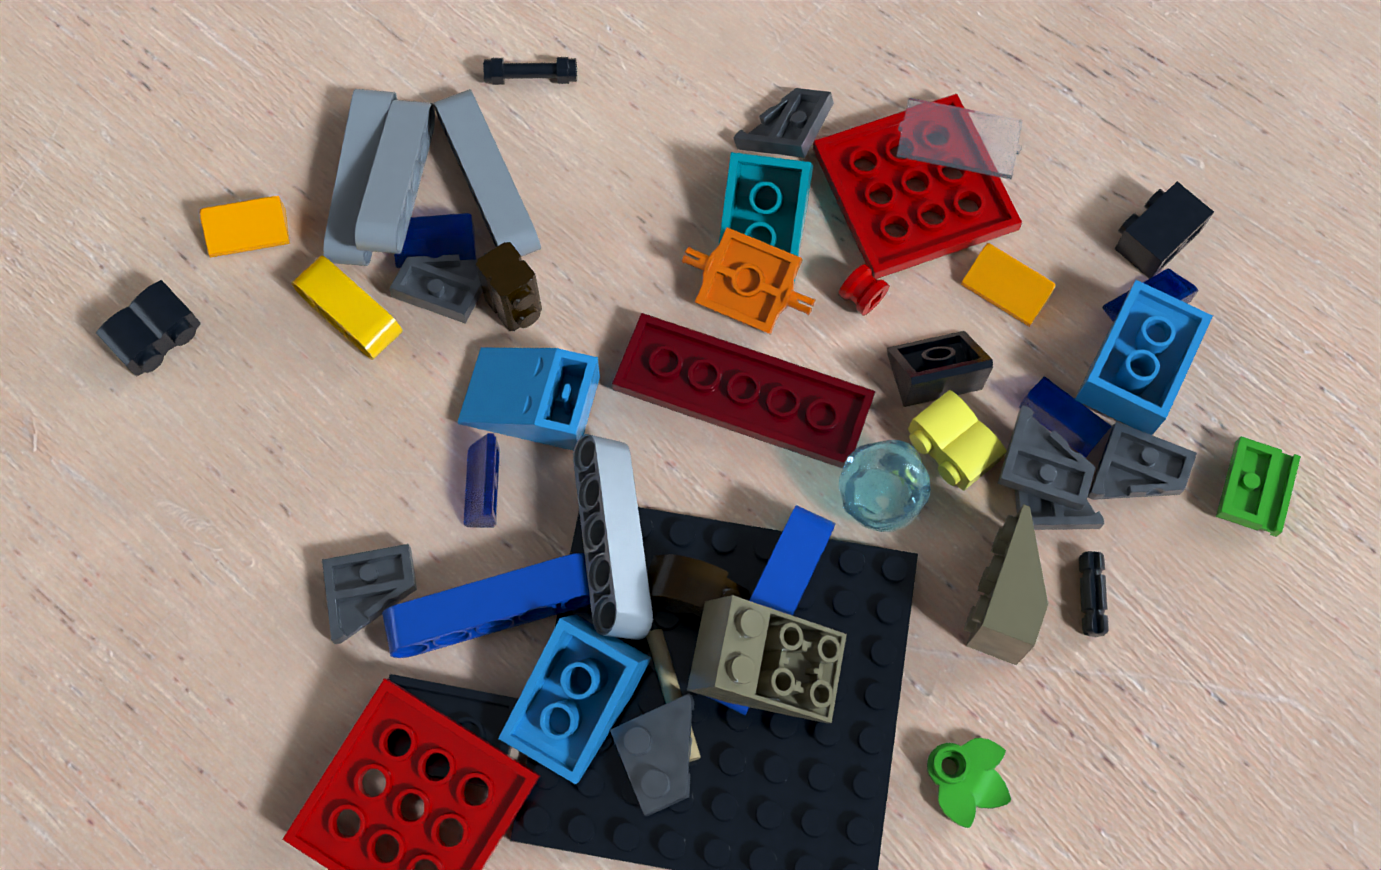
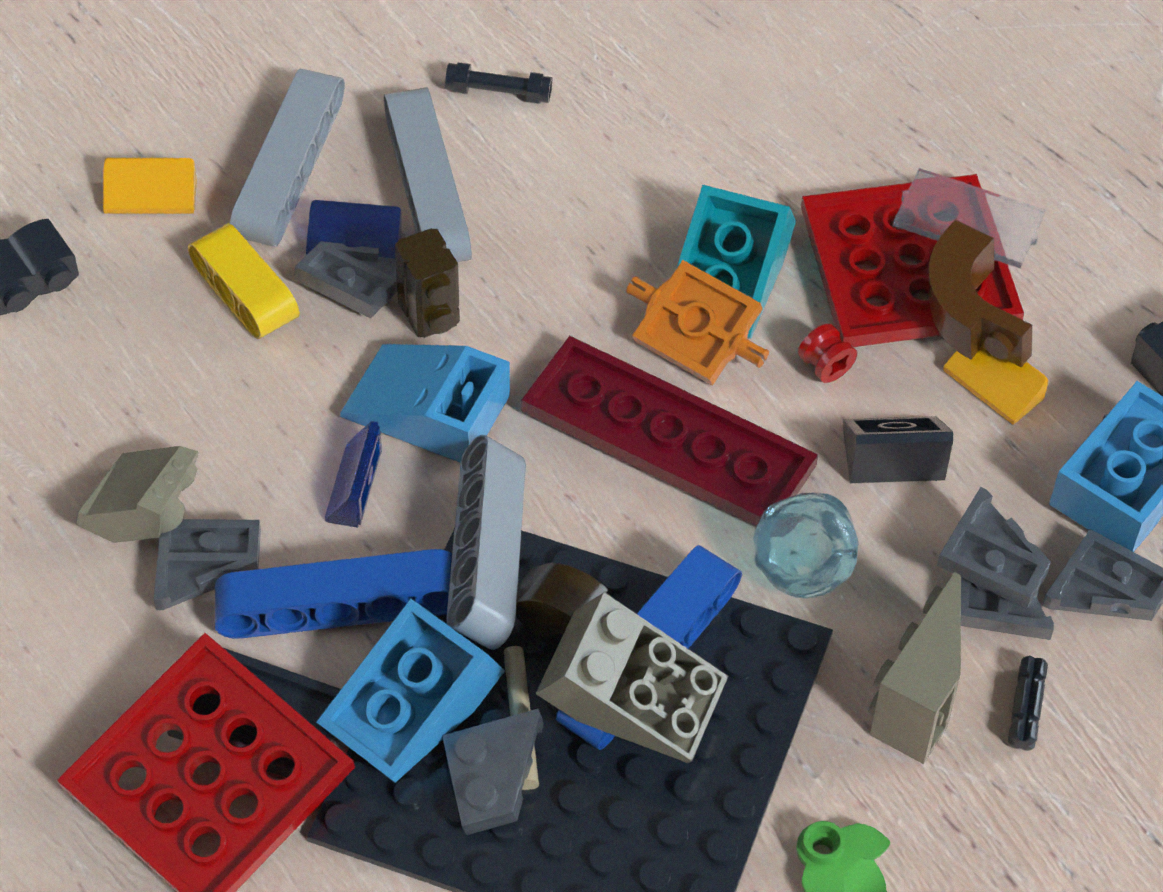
camera: 10 degrees right, 15 degrees down
(299, 539) = (140, 495): none -> dark tan slope
(395, 177) = (325, 157): light grey beam -> none
(789, 125) = (782, 176): flat silver wing -> none
(956, 440) = (900, 519): light yellow brick -> none
(969, 232) = (961, 316): none -> reddish brown arch
(1066, 416) = (1035, 516): clear blue slope -> none

